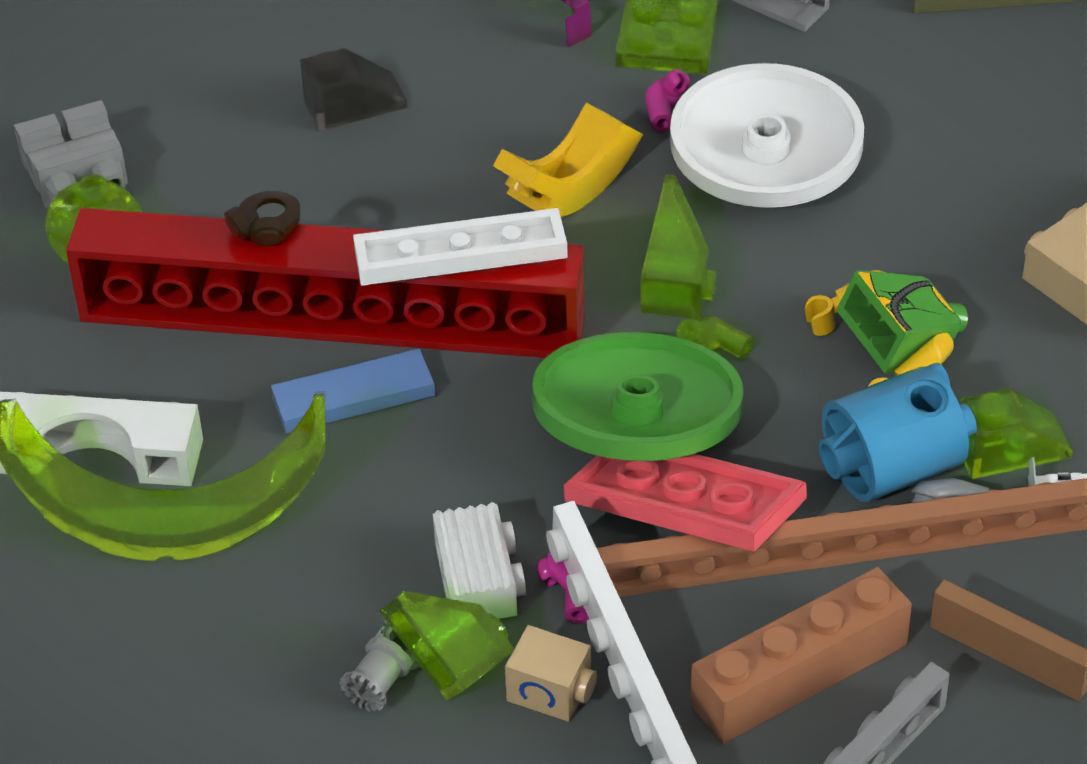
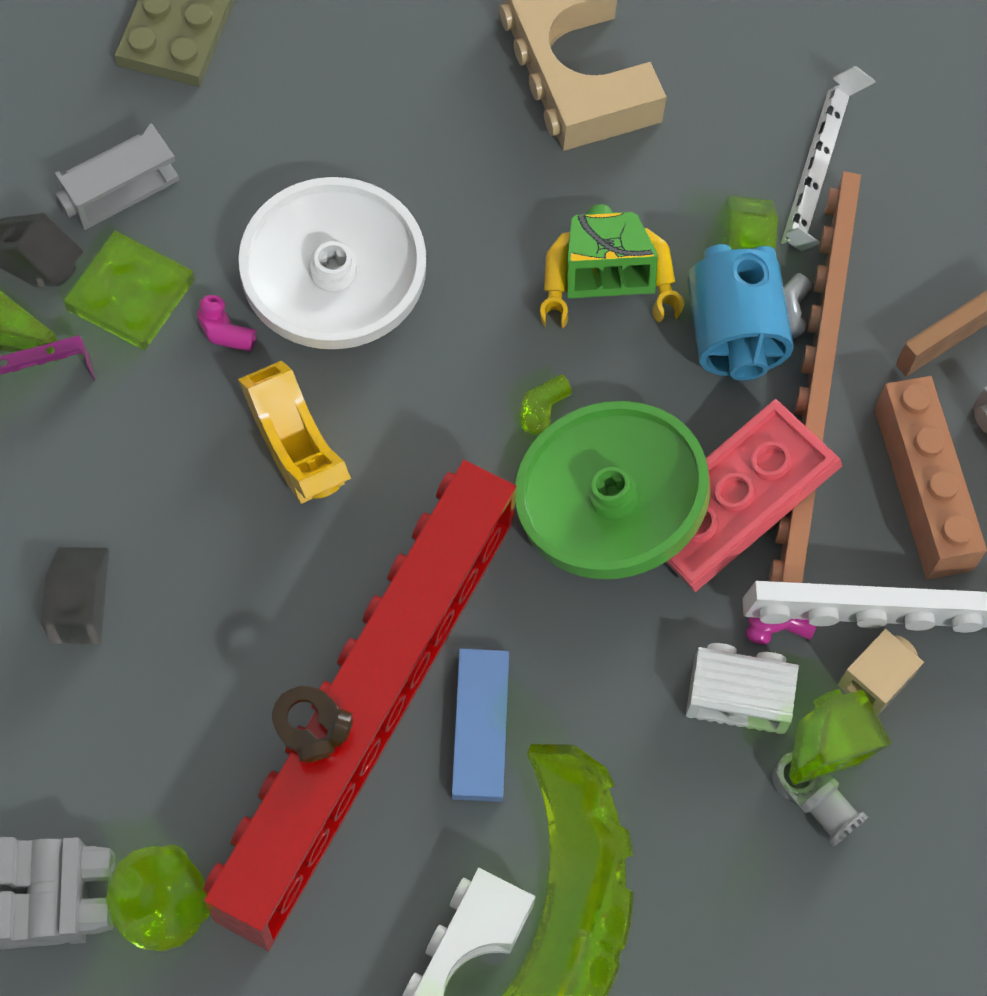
camera: 75 degrees left, 20 degrees up
(460, 246) = (439, 564): white plate -> none
(677, 259) = (442, 394): clear neon green slope -> none

